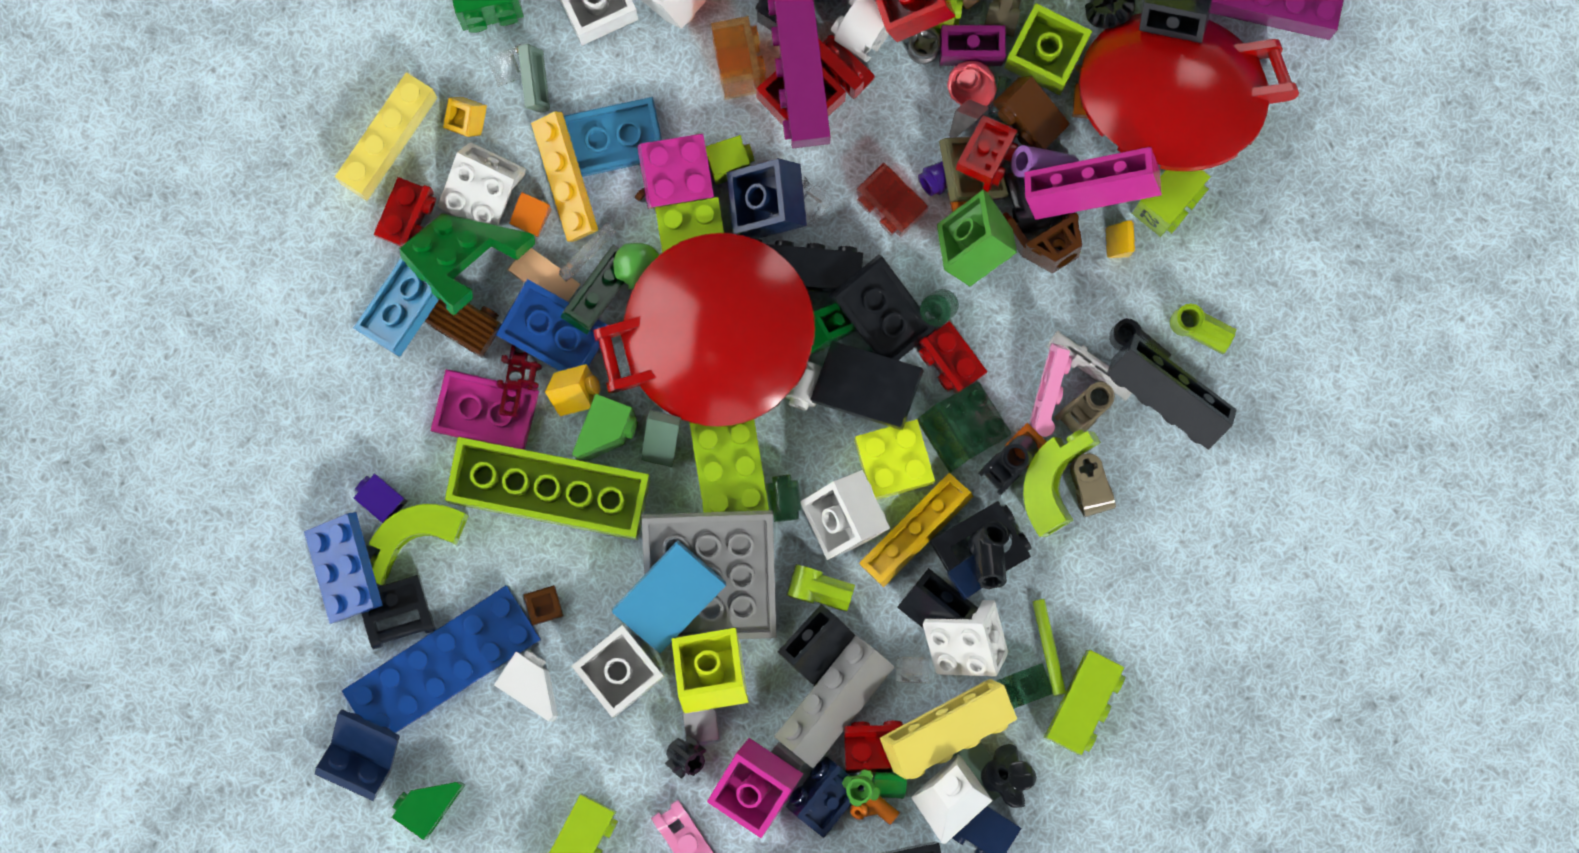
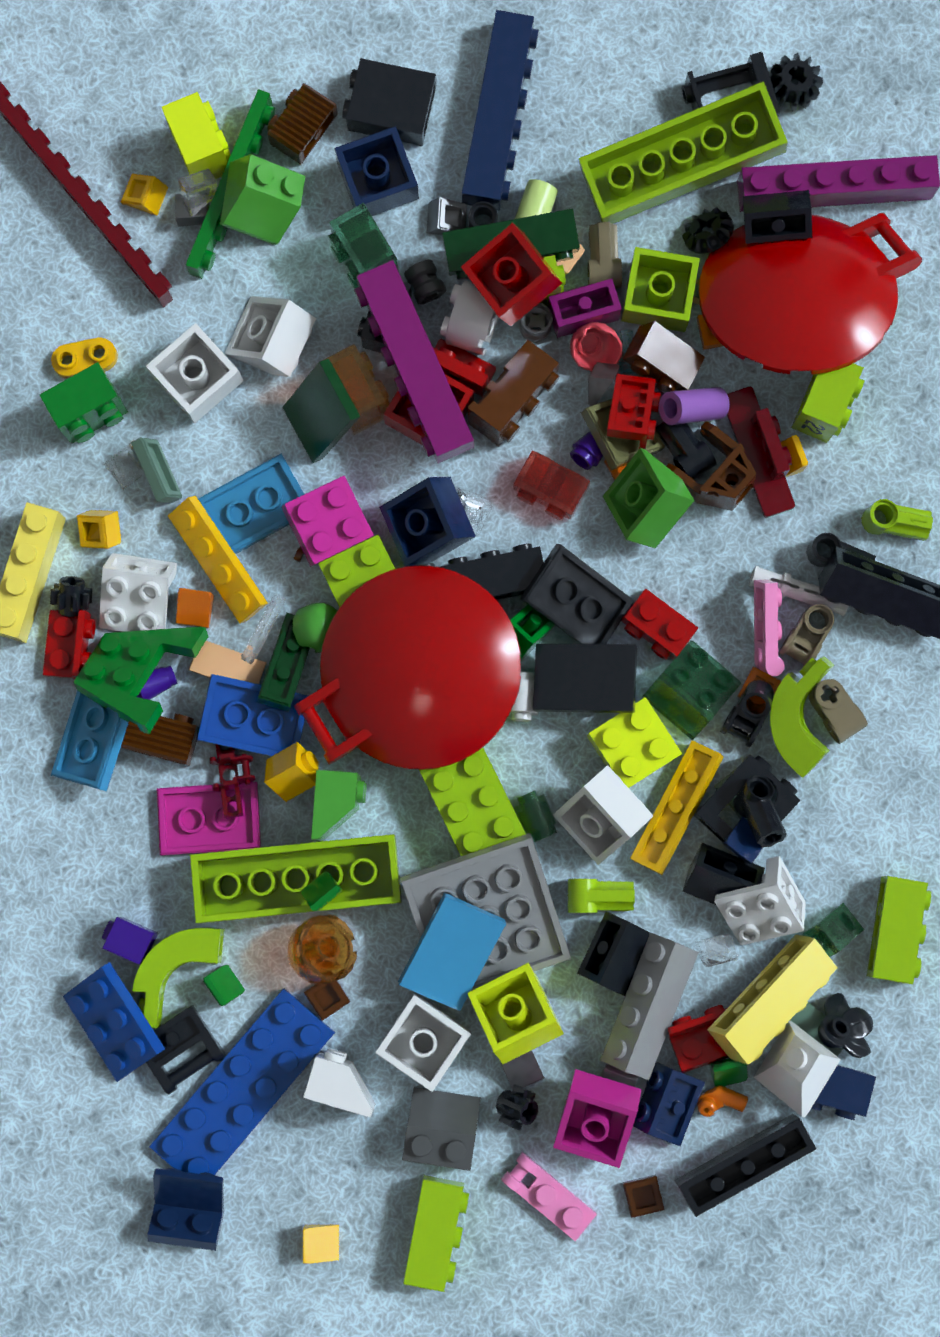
camera: 15 degrees left, 0 degrees up
(420, 170) = (70, 596): none -> black gear
(425, 807) = (270, 1239): green slope -> none
(453, 566) = (224, 985): none -> green slope
(470, 825) = (320, 1243): none -> yellow slope
(476, 272) = (158, 682): none -> dark purple cone
(551, 559) = (322, 949): none -> clear orange cylinder
(566, 505) = (321, 891): none -> green slope
(611, 755) = (441, 1129): none -> dark grey slope
(661, 438) = (394, 793): sand green tile -> none
(699, 68) = (321, 410): none -> dark green tile
(727, 157) = (375, 491): lime brick -> none
(857, 796) = (698, 1093): bright green plate -> none
(883, 105) = (513, 394): none -> reddish brown wedge
(937, 315) = (630, 587): clear green brick -> none
(1049, 647) = (845, 885): lime bar -> none
(1092, 183) = (749, 409): dark pink brick -> none
(1098, 245) = (762, 446): none -> dark red bracket

